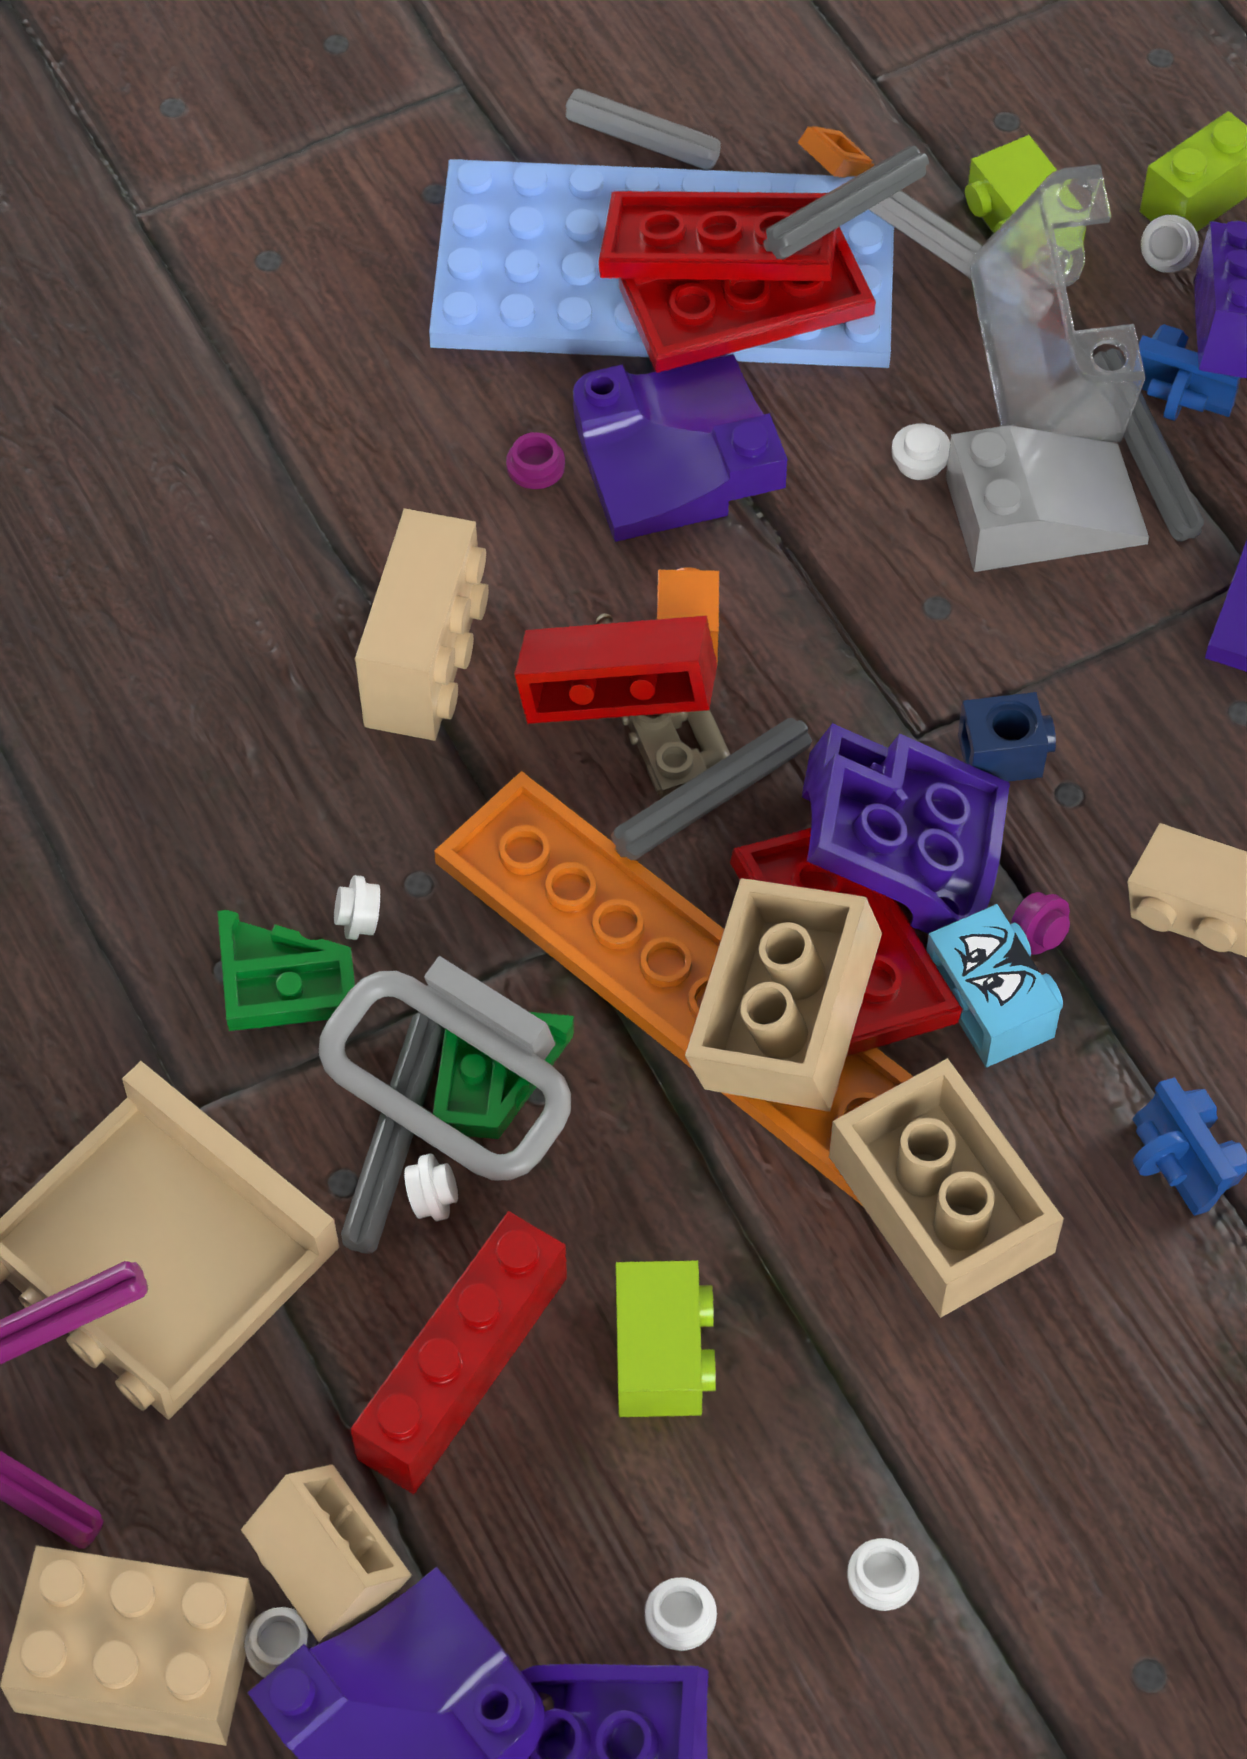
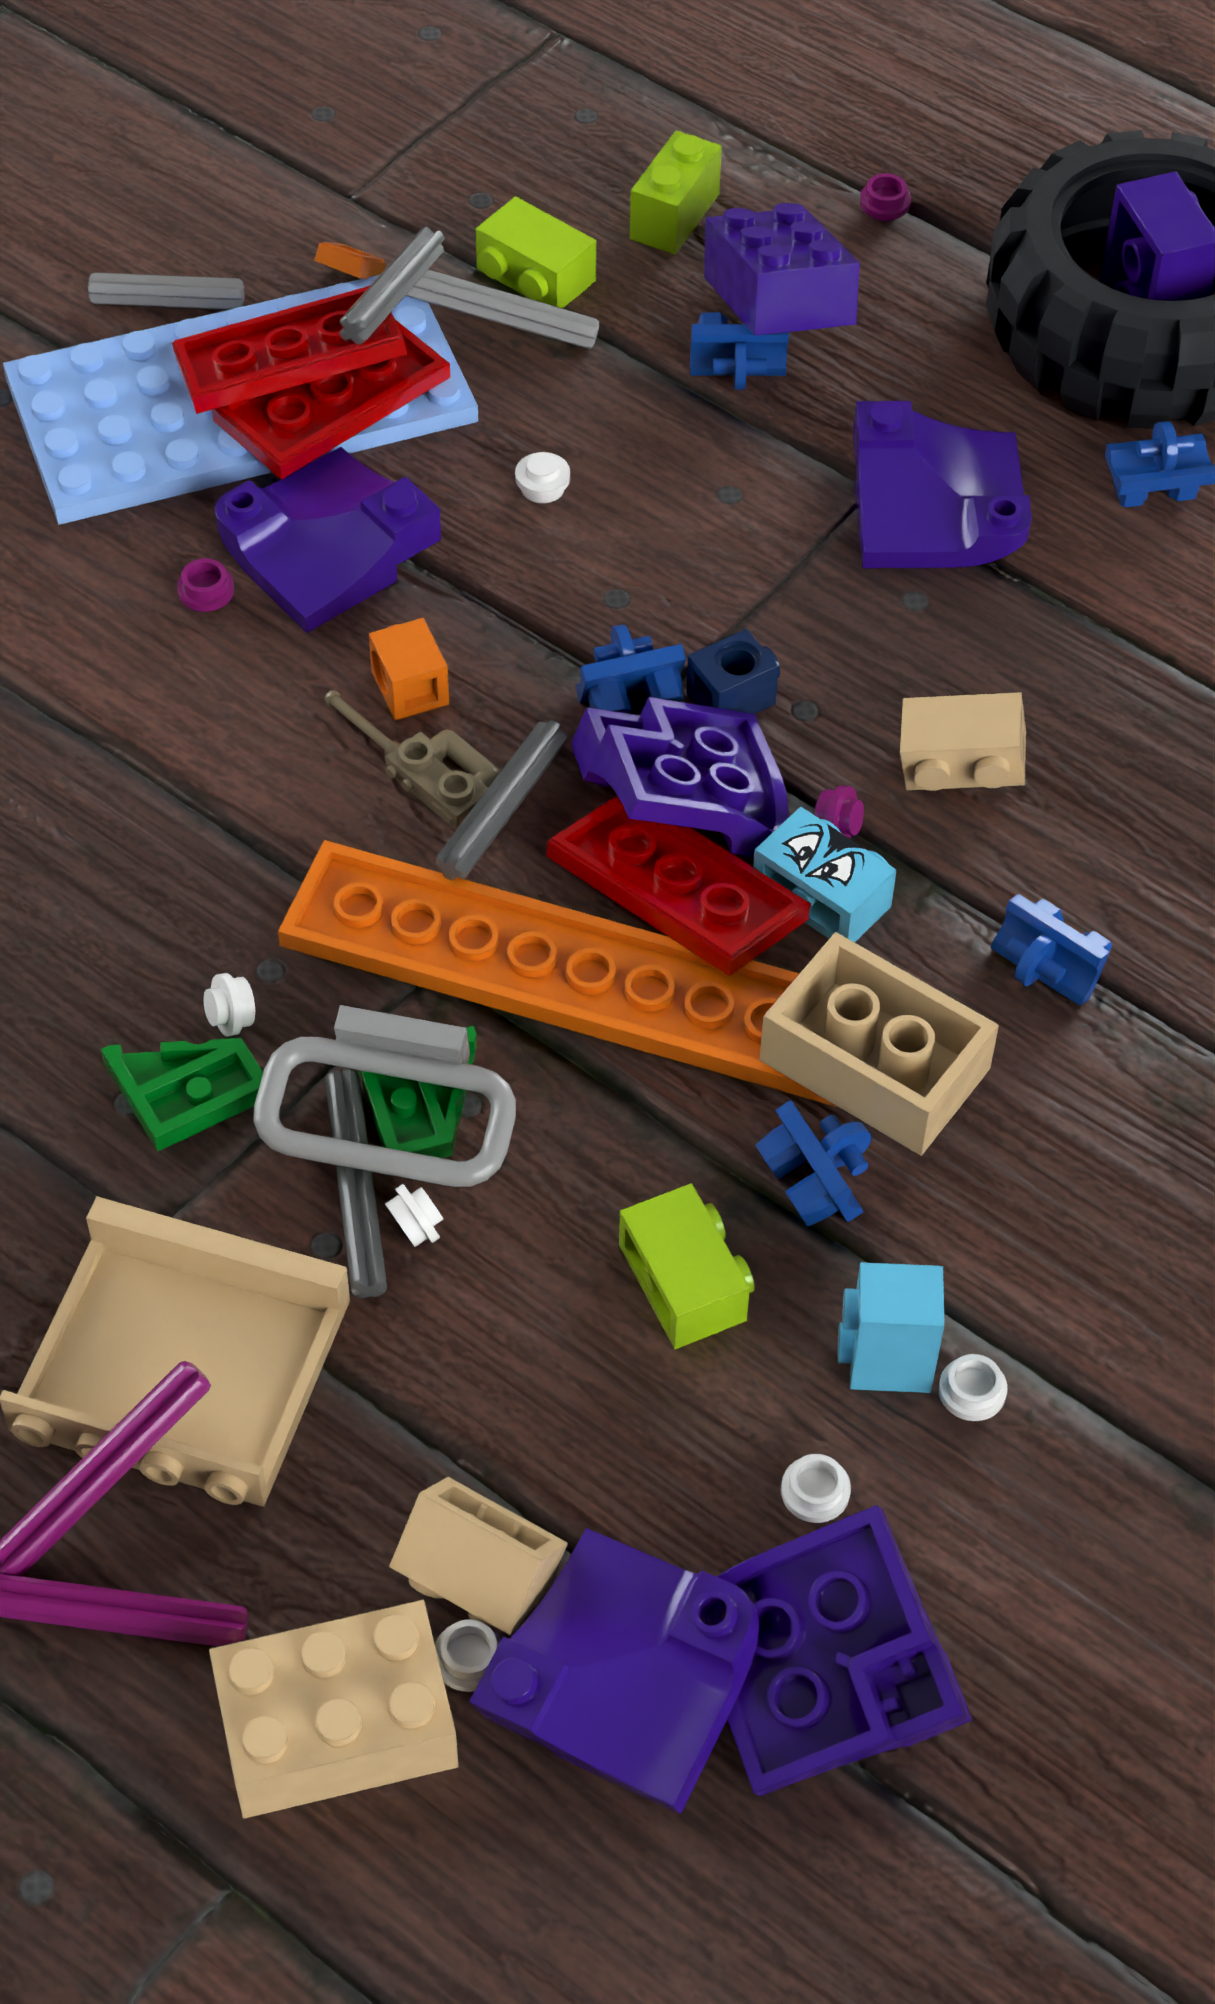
camera: 25 degrees left, 5 degrees down
(421, 625) = (175, 744): tan brick -> none
(460, 1352) = (513, 1343): red brick -> none
(616, 670) = (372, 726): red brick -> none
(784, 994) = (664, 932): tan brick -> none
(820, 1484) = (893, 1327): none -> medium azure brick
(834, 1258) = (825, 1189): none -> blue hips
(929, 703) = (630, 667): none -> blue hips
(1034, 356) = (610, 354): clear windscreen -> none
(1040, 496) = (660, 482): light grey slope -> none
(1157, 462) = (732, 414): dark grey axle -> none
(1169, 243) = (671, 252): white plate -> none

